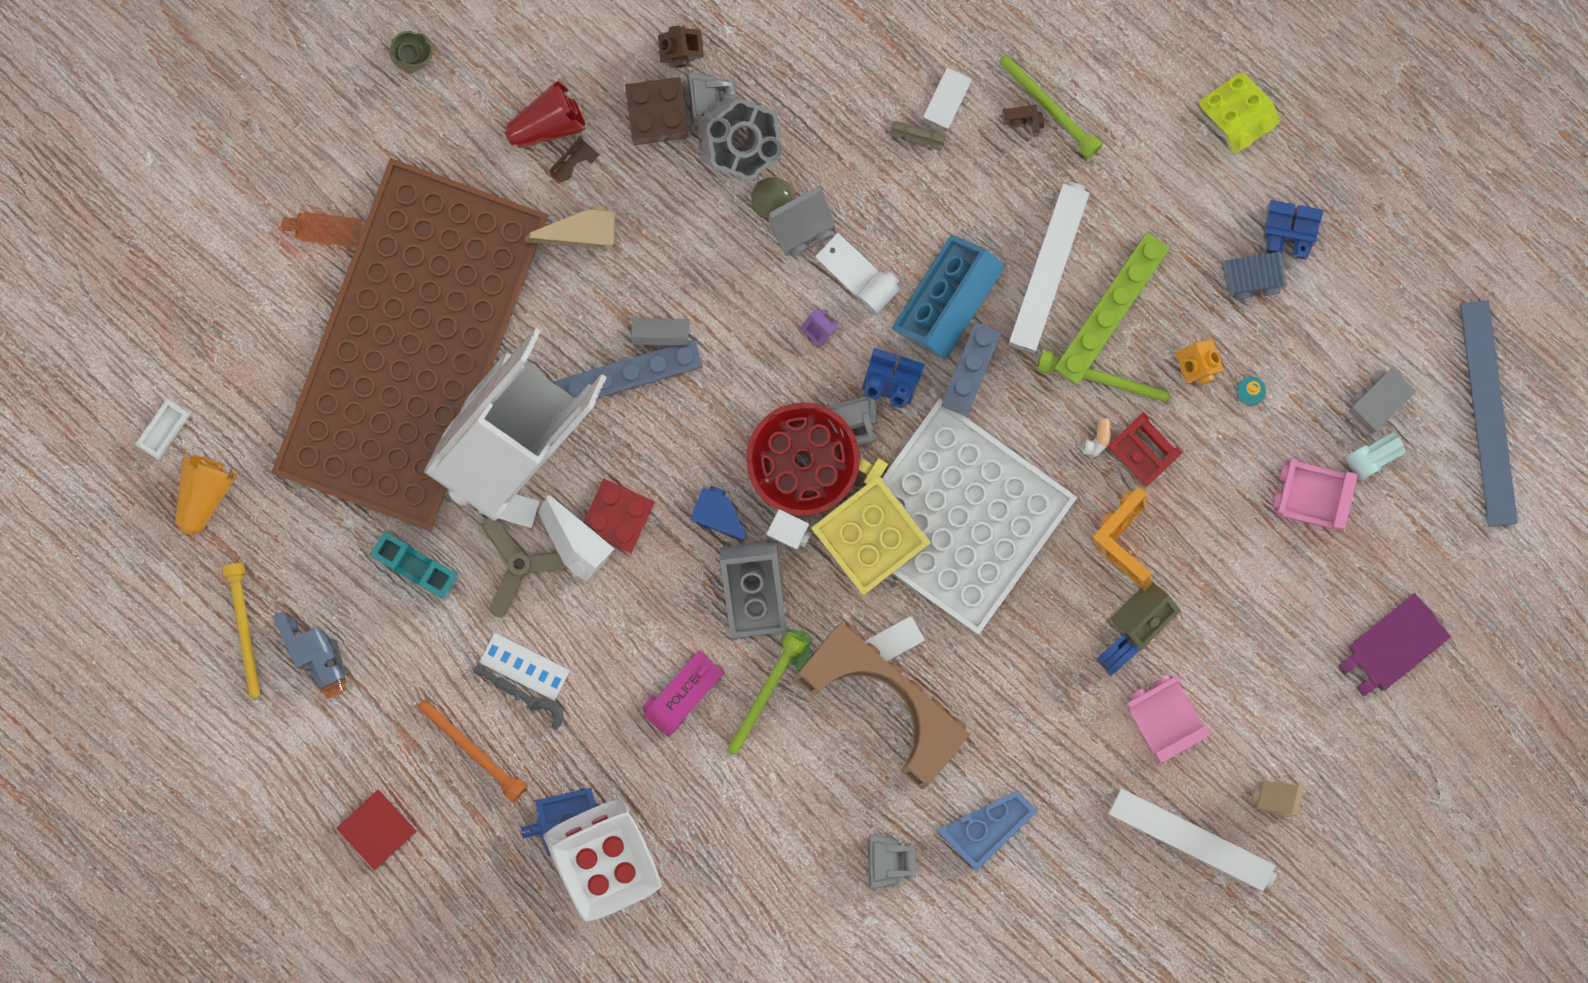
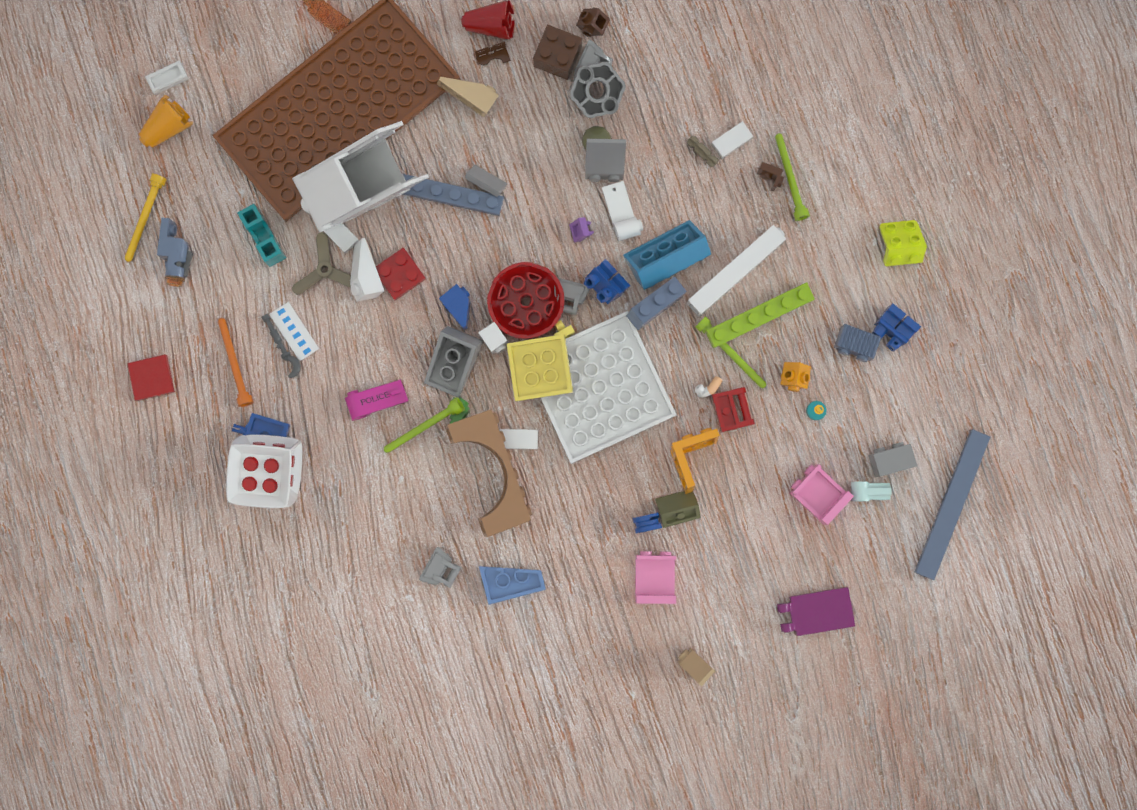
camera: 25 degrees right, 0 degrees up
(1192, 840) = (629, 661): white brick -> none

